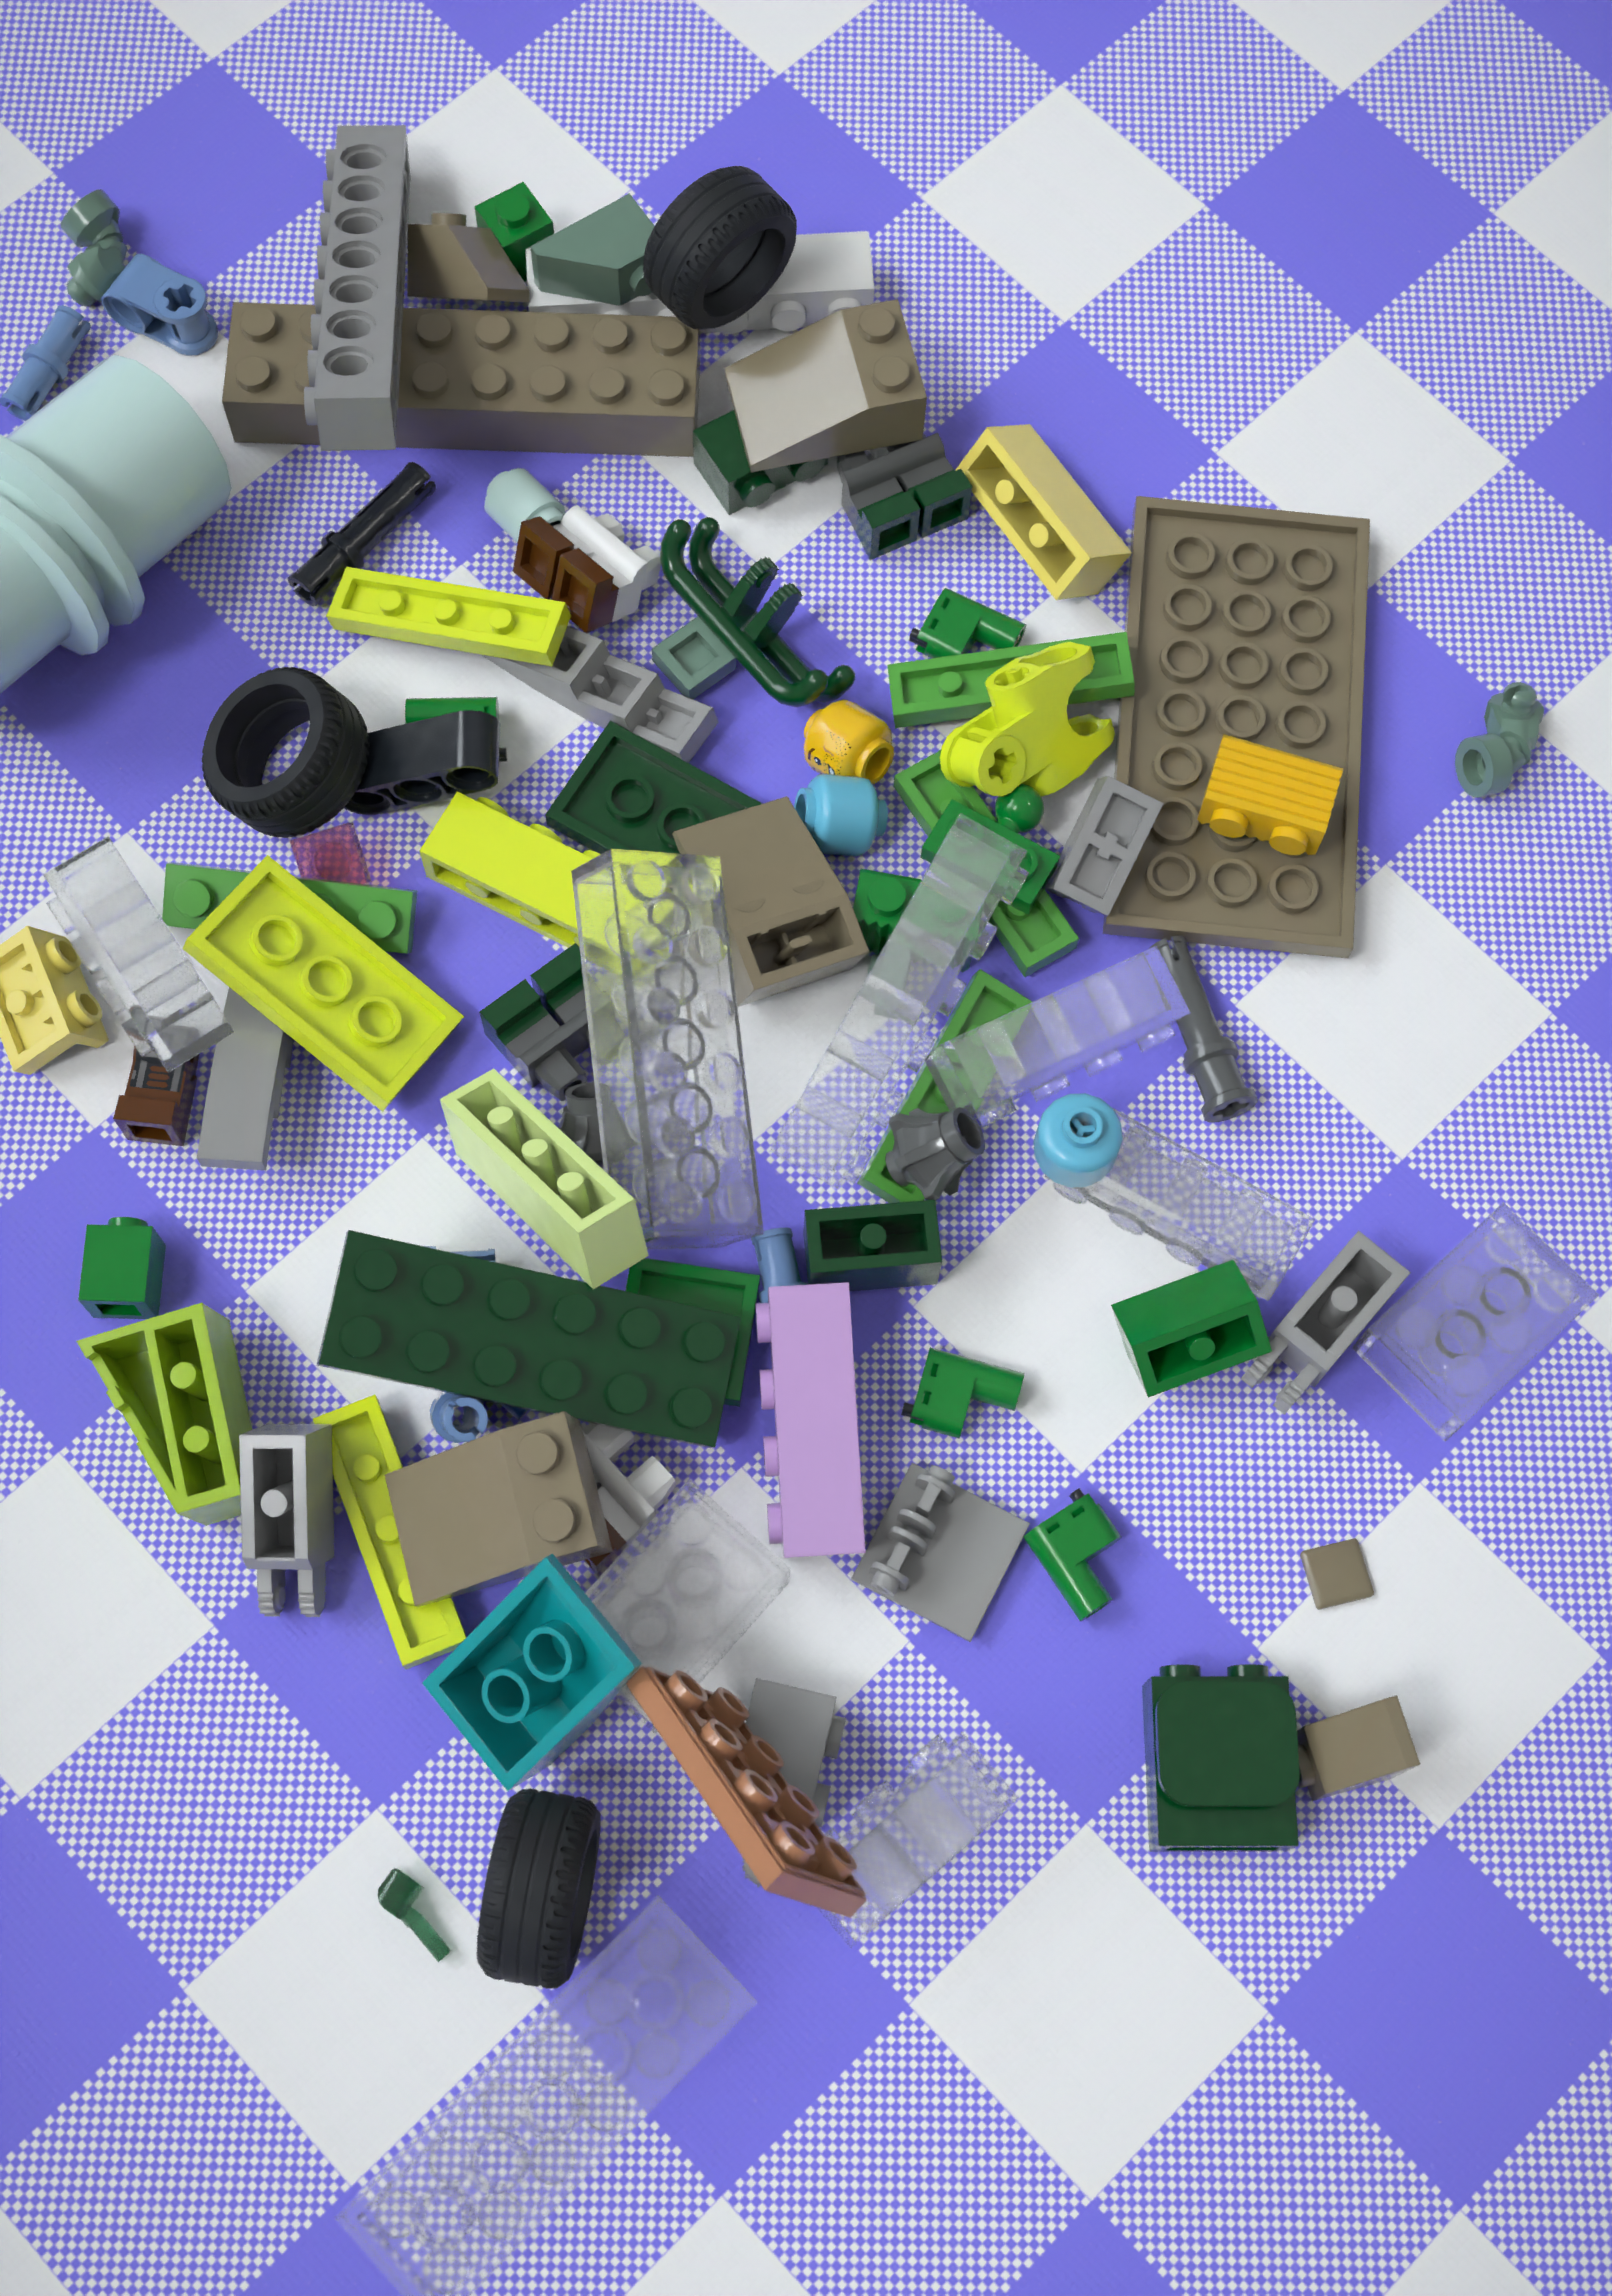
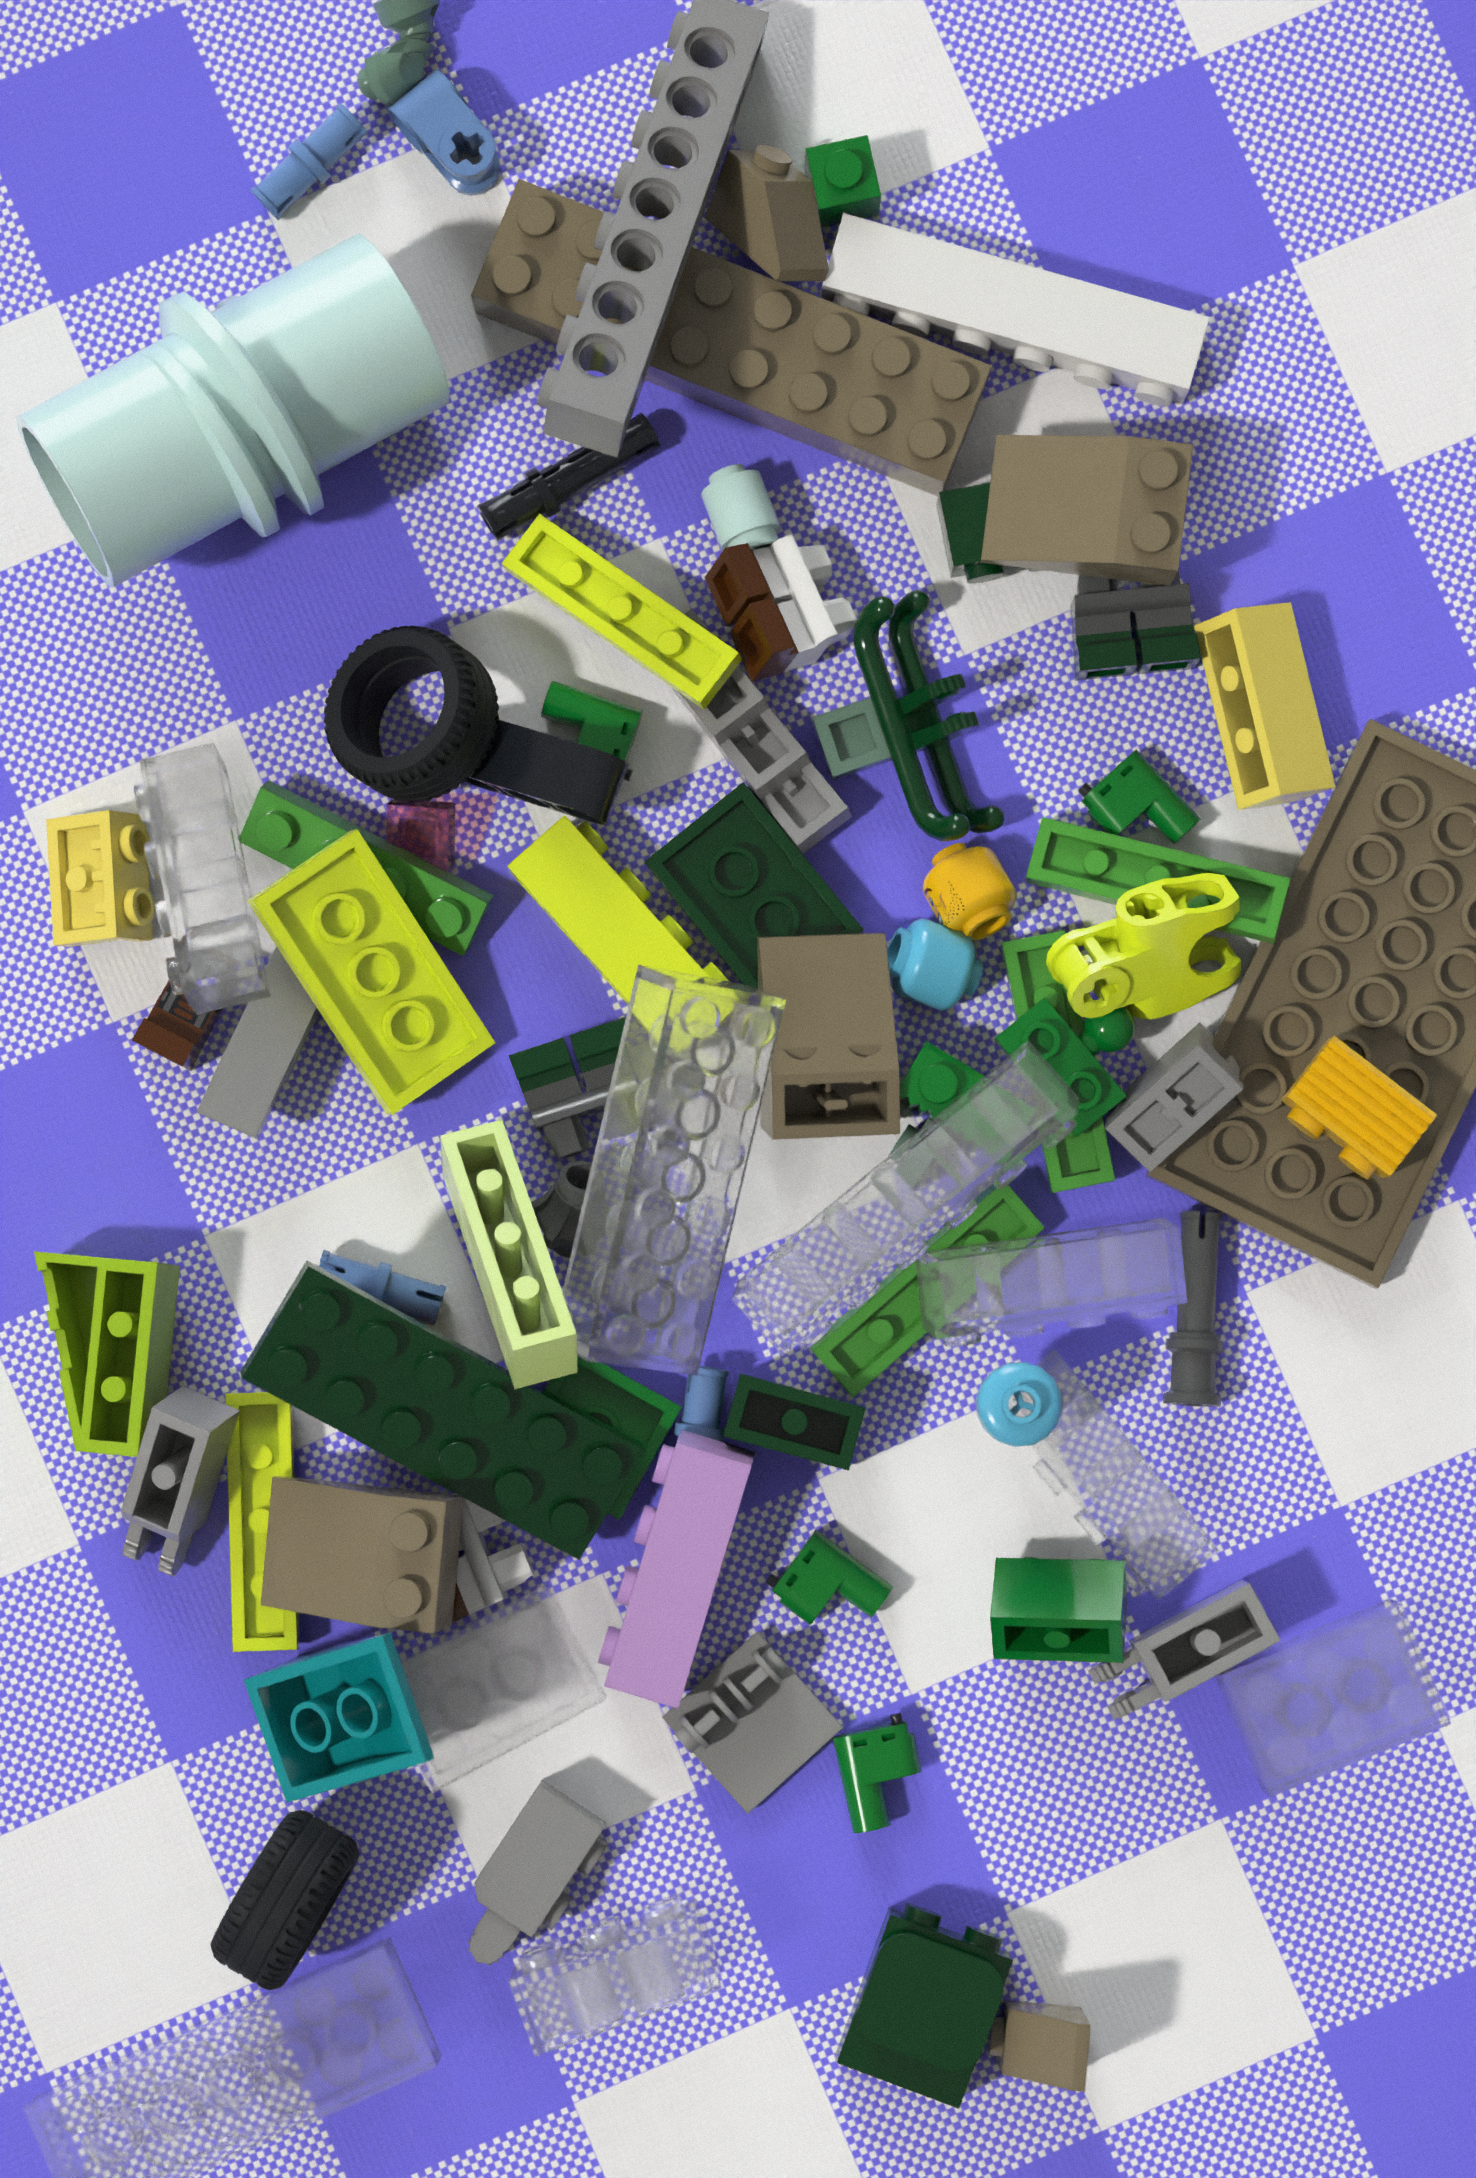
camera: 25 degrees right, 15 degrees up
(122, 1269) = (97, 1183): green brick -> none
(397, 1896) = (162, 1849): clear green hand -> none
(474, 1417) = (354, 1460): medium blue pin -> none
(597, 255) = (918, 267): sand green slope -> none
(719, 247) = (1031, 321): black tyre -> none
(747, 1793) = (486, 1900): nougat tile -> none
(933, 1149) = (883, 1356): dark grey rock -> none
(1336, 1574) = (1107, 1874): dark tan piece -> none

